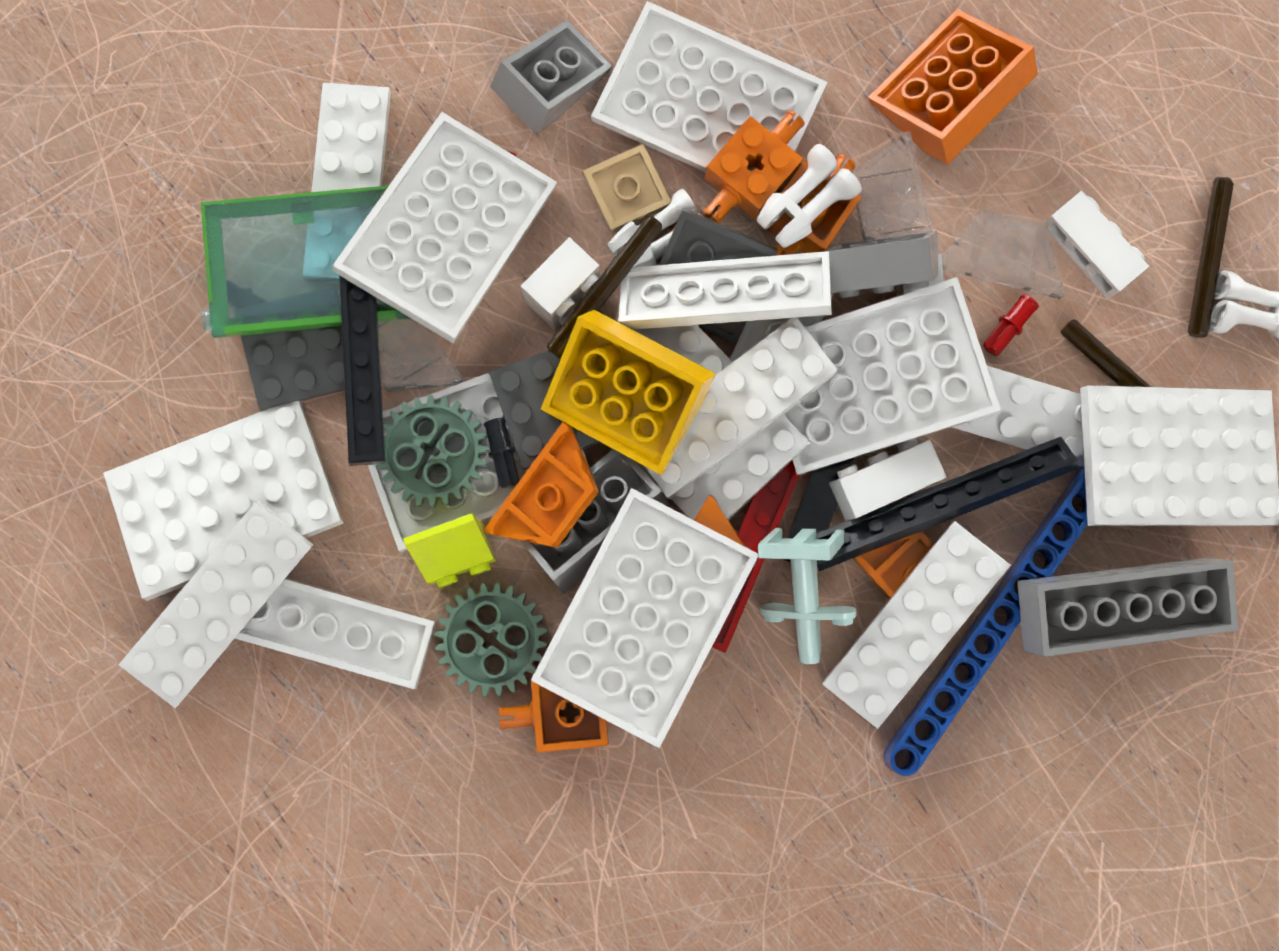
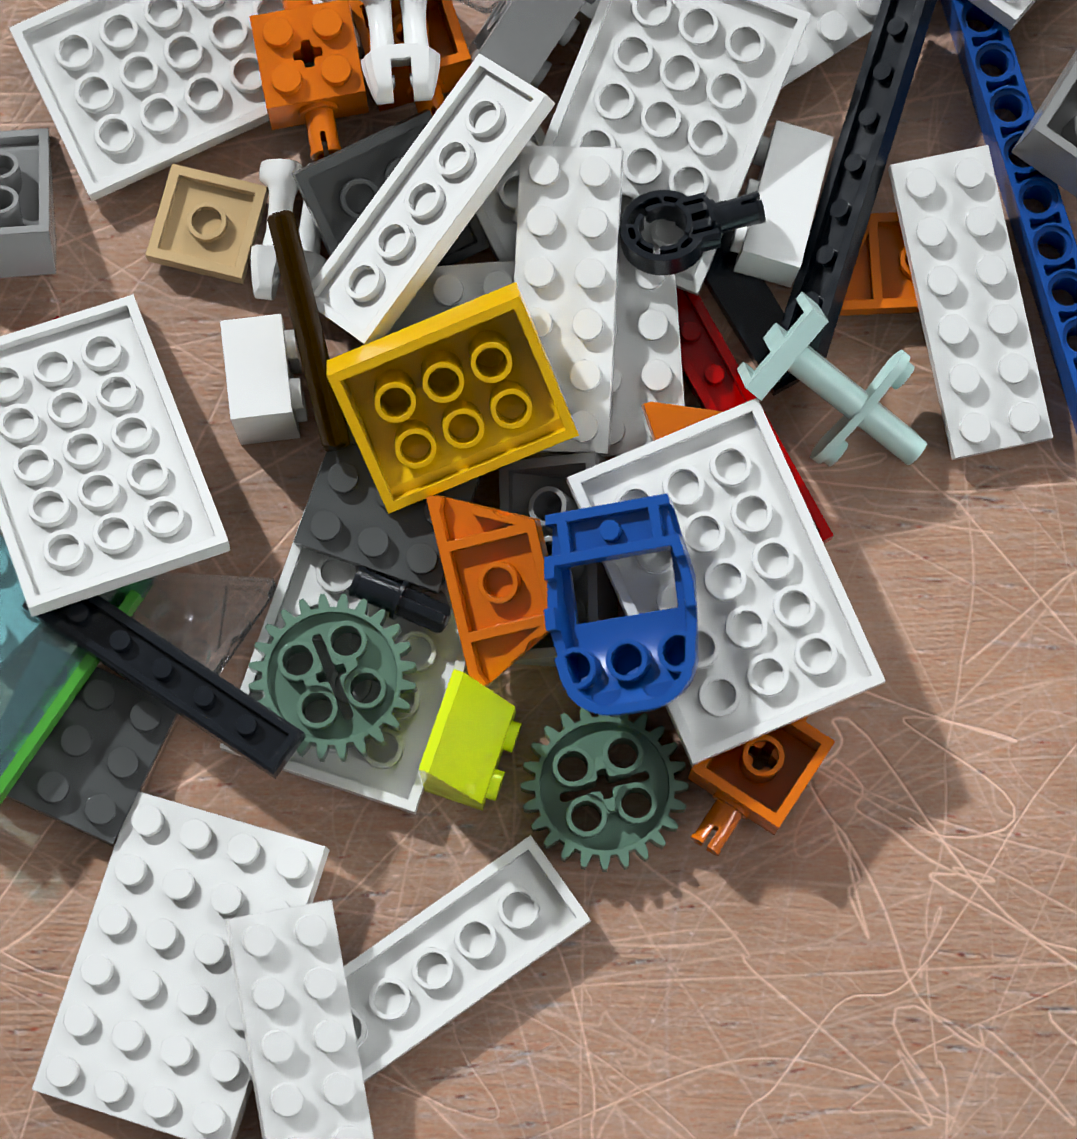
camera: 45 degrees left, 5 degrees down
(554, 601) = (632, 659): none -> blue slope
(836, 440) = (698, 218): none -> black pin

